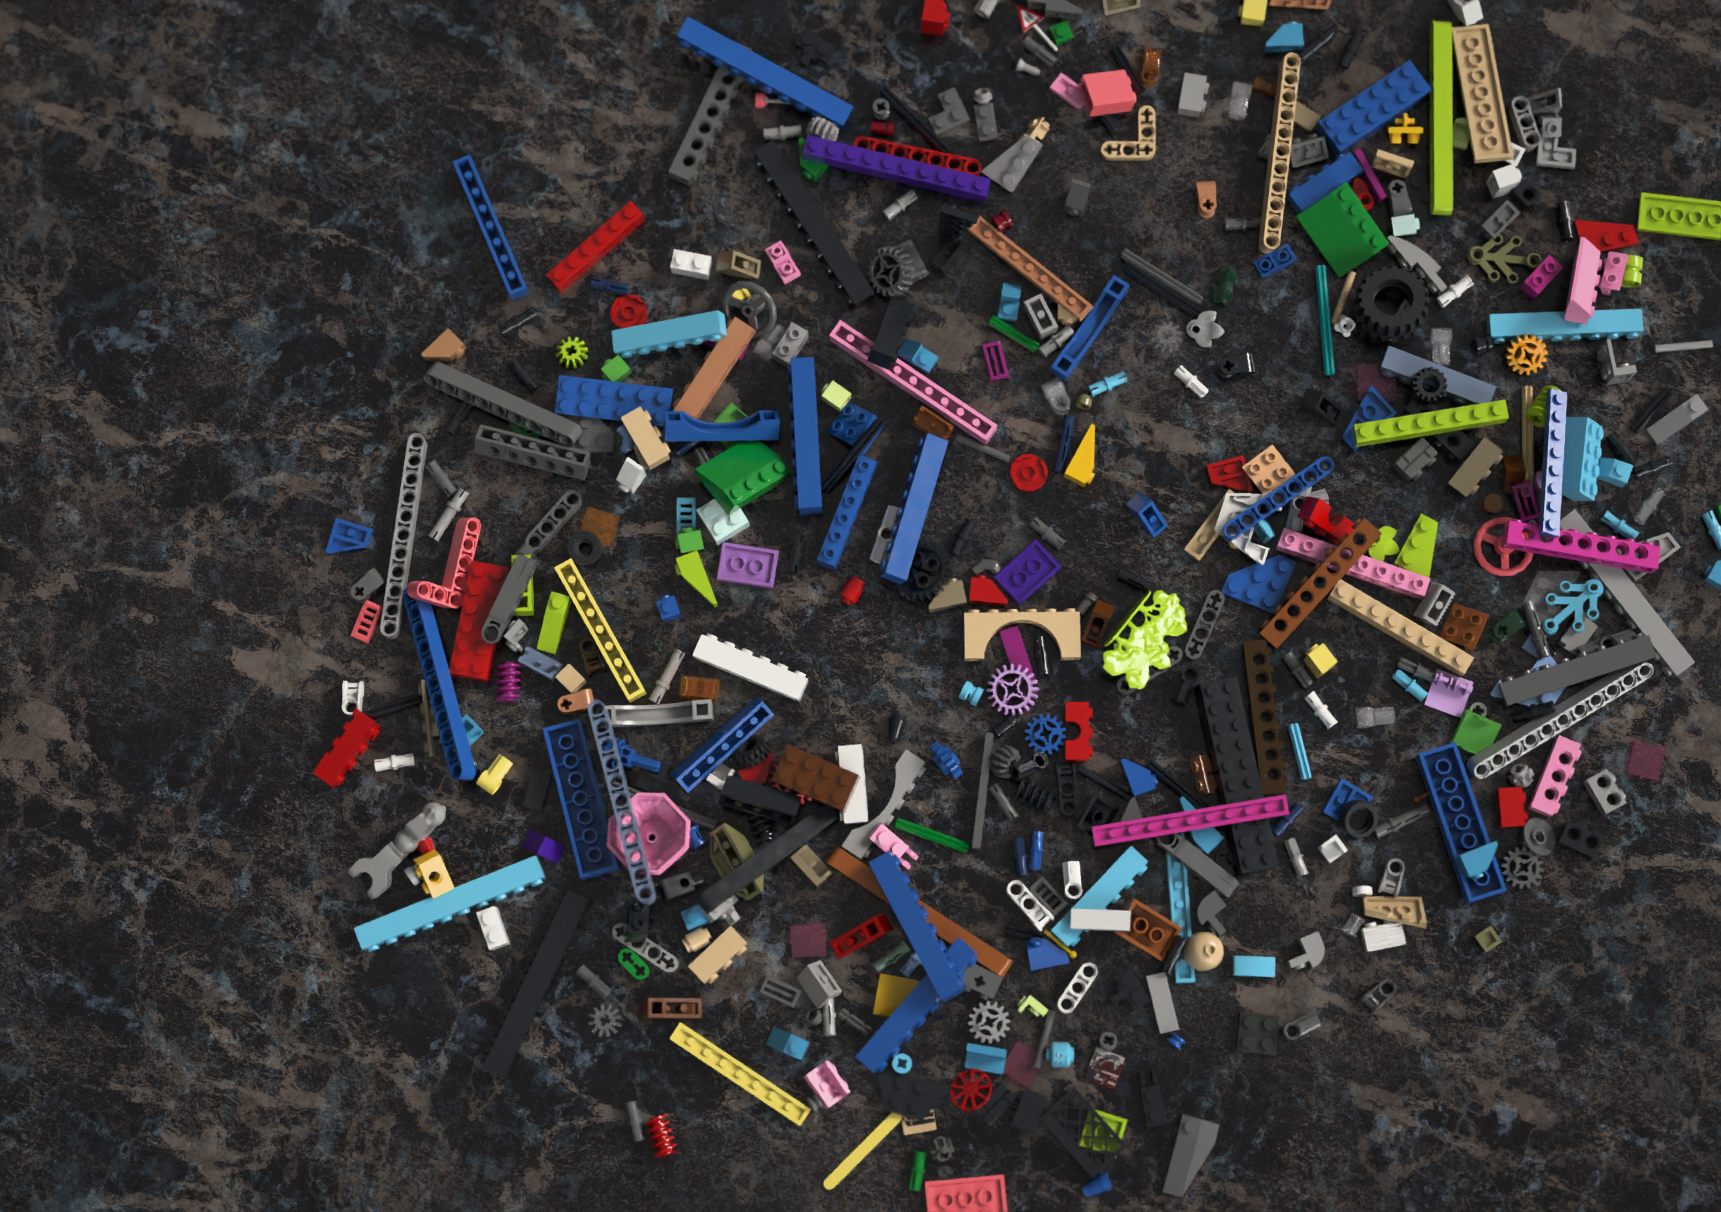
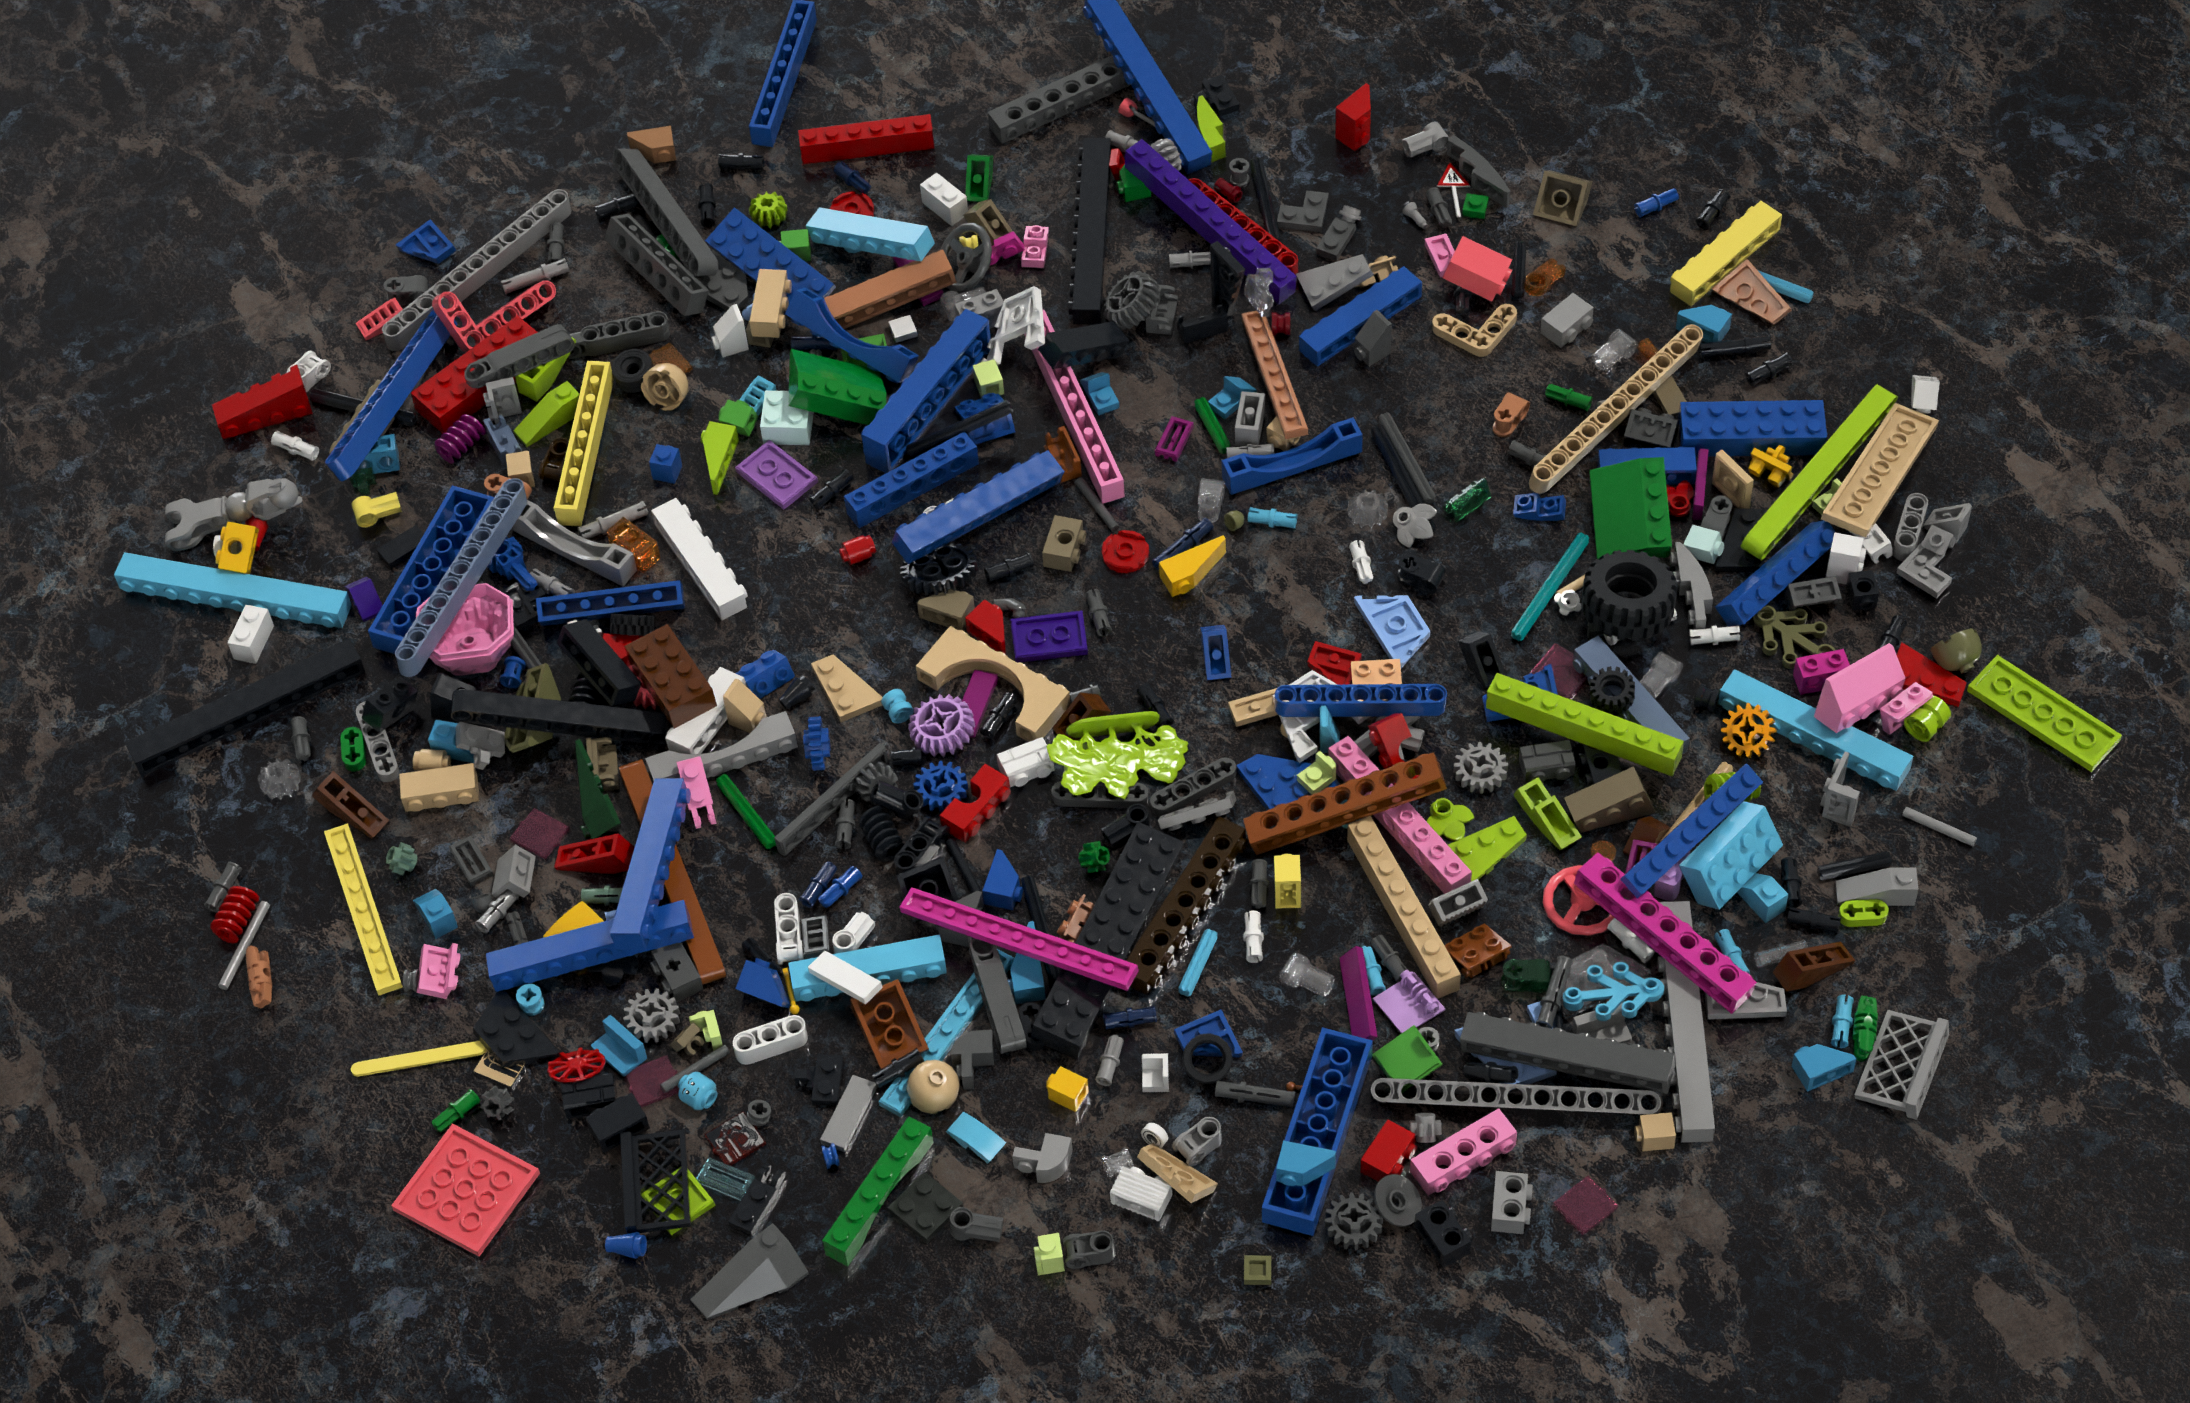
camera: 35 degrees right, 25 degrees down
(619, 546) = (665, 385): none -> tan cylinder
(665, 753) = (551, 584): none -> light grey pin
(682, 1150) = (243, 945): none -> light grey bar
(700, 228) = (978, 177): none -> green slope
(714, 1167) = (259, 976): none -> nougat hinge
(737, 1023) = (401, 858): none -> sand green gear
(742, 390) = (902, 328): none -> white tile
(767, 277) = (1006, 246): none -> dark pink plate
(790, 156) = (1116, 162): none -> red tile
(831, 339) = (1018, 316): none -> white wing
(832, 83) = (1211, 129): none -> lime slope
(840, 906) = (597, 810): none -> dark green wedge
(863, 726) = (767, 673): none -> blue bracket
(876, 764) = (743, 707): none -> tan slope
(923, 701) = (844, 688): none -> tan wing
(972, 205) = (1257, 290): none -> clear hinge
(978, 487) = (1063, 543): none -> dark tan brick
(1022, 1023) = (685, 1038): none -> dark tan tile
(1051, 180) = (1341, 327): none -> blue brick
(1086, 680) = (1025, 762): none -> white brick
(1105, 1102) = (715, 1185): none -> clear light blue tile
(1182, 721) = (1094, 857): none -> green gear
(1225, 1044) = (854, 1222): none -> green arch
(1229, 639) = (1195, 815): none -> light grey wing
(1234, 158) = (1568, 397): none -> green axle
(1247, 416) = (1395, 625): none -> light blue wing
(1282, 568) = (1318, 774): none -> yellowish green bracket
(1285, 896) = (1067, 1088): none -> yellow brick
(1358, 1015) = (1049, 1254): none -> yellowish green brick
(1378, 499) = (1480, 767): none -> light grey gear
(1417, 711) = (1358, 994): none -> magenta tile
(1441, 498) = (1547, 814): none -> lime slope
(1466, 218) = (1776, 573): none -> blue brick
(1551, 560) = (1631, 941): none -> white pin
(1617, 207) = (1959, 651): none -> olive cylinder
(1657, 684) = (1656, 1132): none -> tan brick
(1674, 502) = (1811, 964): none -> reddish brown slope
(1680, 445) = (1863, 913): none -> lime beam

